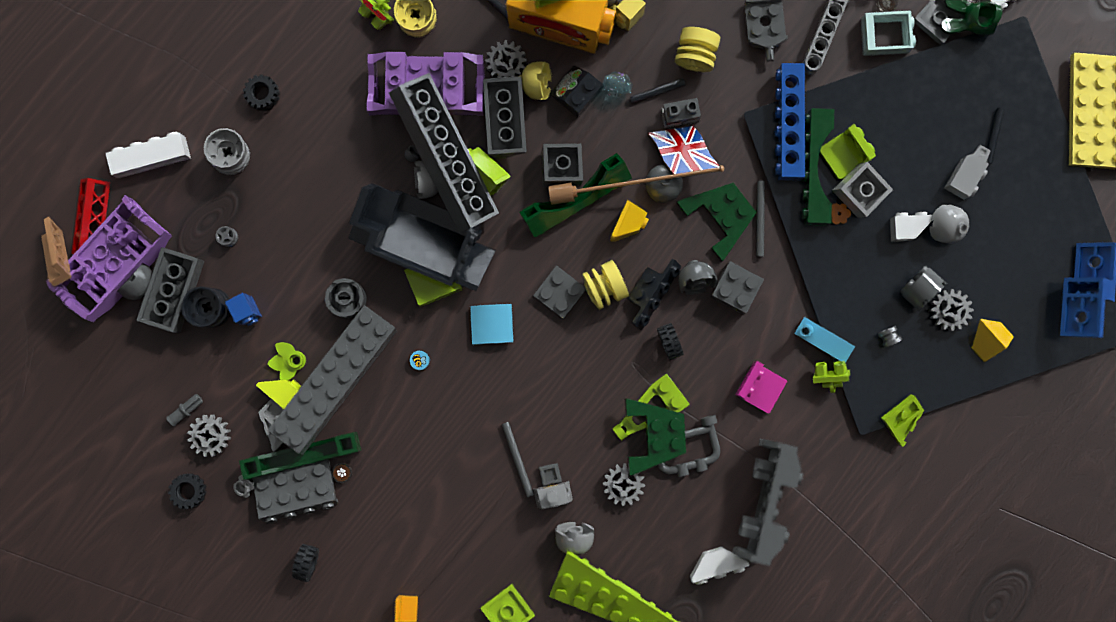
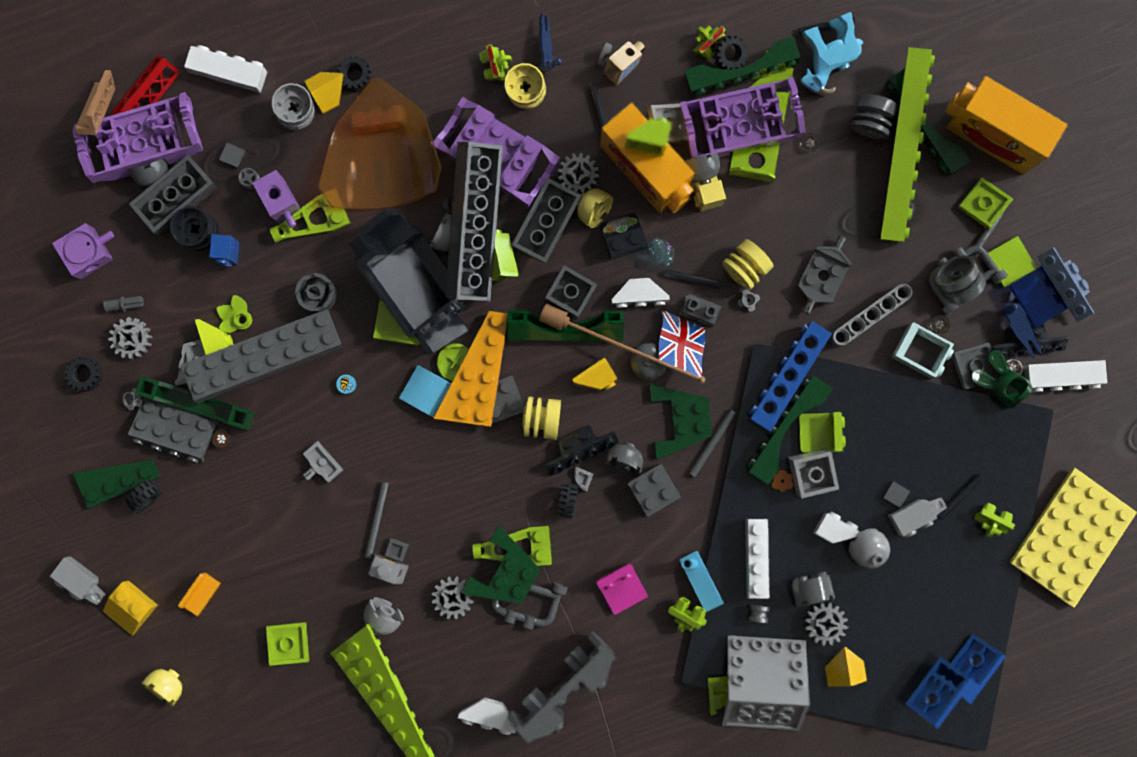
camera: 30 degrees right, 0 degrees up
(121, 385) = (83, 250): none -> medium lavender piece
(199, 226) = (232, 155): none -> dark grey tile
(245, 120) = (326, 89): none -> yellow slope
(268, 570) = (110, 482): none -> dark green wing
(271, 241) = (281, 207): none -> medium lavender piece
(316, 219) = (336, 220): none -> lime plate
(327, 145) = (380, 153): none -> clear orange windscreen
(440, 440) = (321, 463): none -> light grey plate
(501, 284) = (450, 360): none -> lime tile
(530, 291) = (475, 385): none -> light orange wing
(621, 129) = (639, 293): none -> white slope
(670, 315) = (583, 478): none -> light grey tile
(719, 75) = (754, 298): none -> light grey plate
(859, 291) = (757, 558): none -> white brick
(934, 390) = (766, 683): none -> light grey bracket
(940, 166) = (896, 494): none -> dark grey tile
(1036, 139) = (993, 523): none -> lime hips

